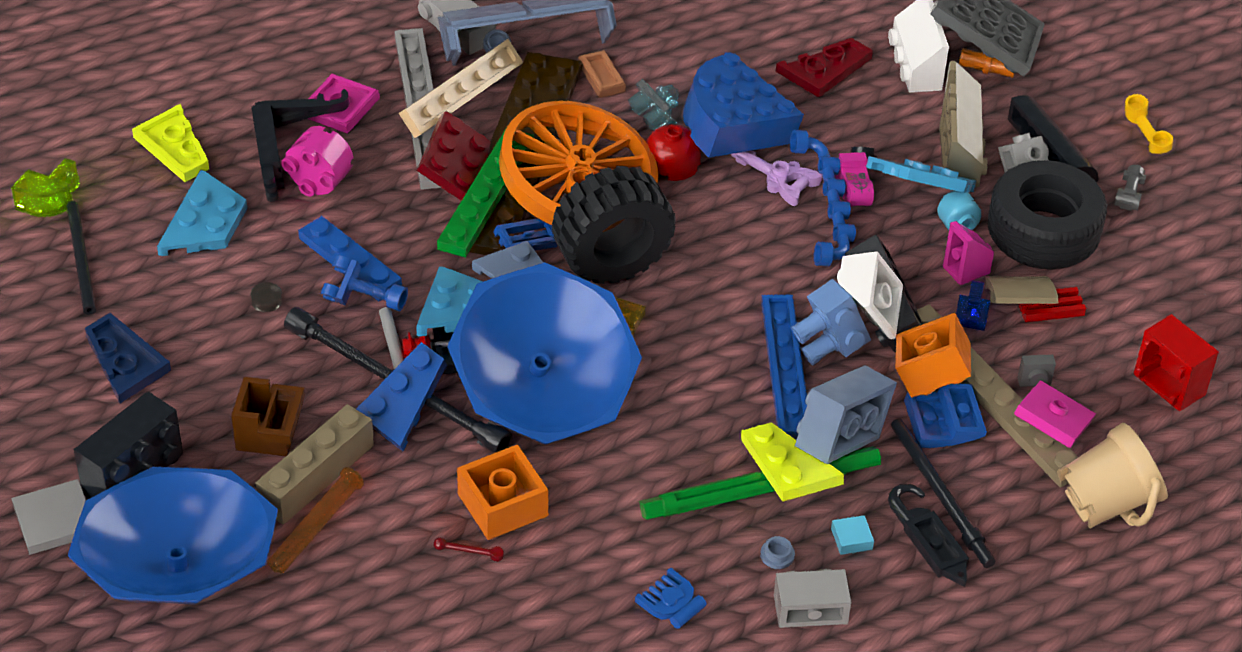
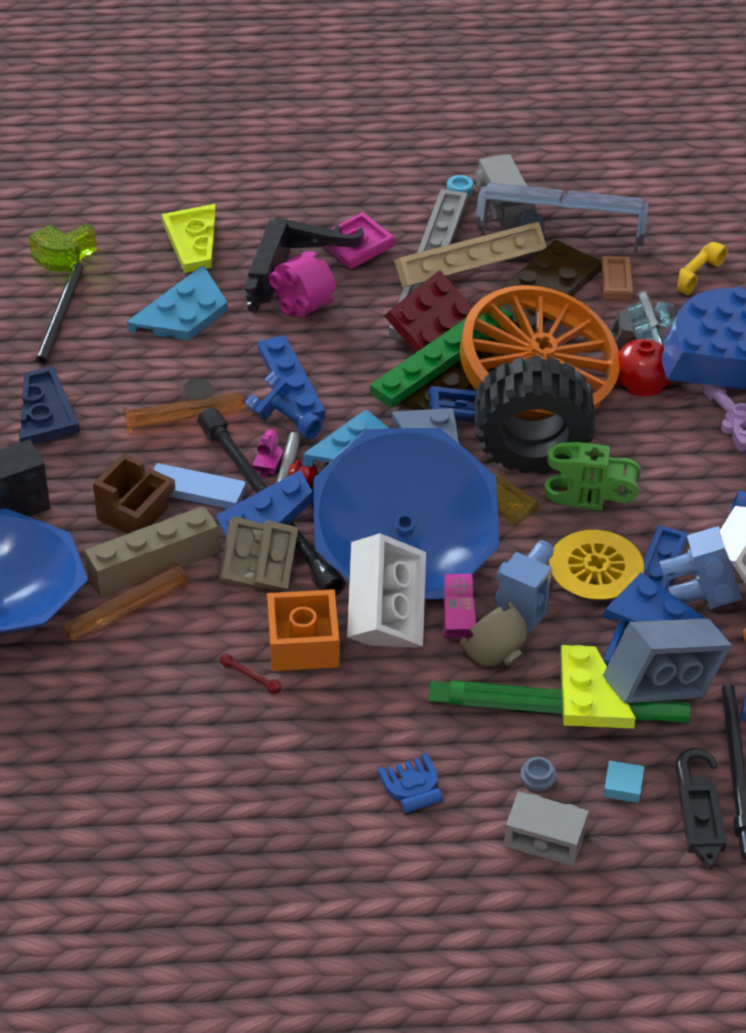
camera: 25 degrees right, 0 degrees up
(261, 319) = (181, 410): none -> clear orange axle
(328, 386) = (204, 487): none -> light blue tile
(371, 336) = (268, 454): none -> dark pink piece
(407, 20) = (461, 184): none -> medium azure tile
(418, 434) = (258, 554): none -> dark tan slope
(561, 432) = (386, 593): none -> white slope
(631, 424) = (458, 606): none -> dark pink leg
(637, 119) = (622, 329): none -> dark grey plate
(678, 28) = (712, 253): none -> yellow bar
(682, 443) = (497, 638): none -> dark tan cylinder
(683, 388) = (526, 583): none -> medium blue brick
(686, 268) = (577, 472): none -> bright green piece
(748, 339) = (596, 558): none -> yellow piece
(798, 371) = (648, 602): none -> blue wing

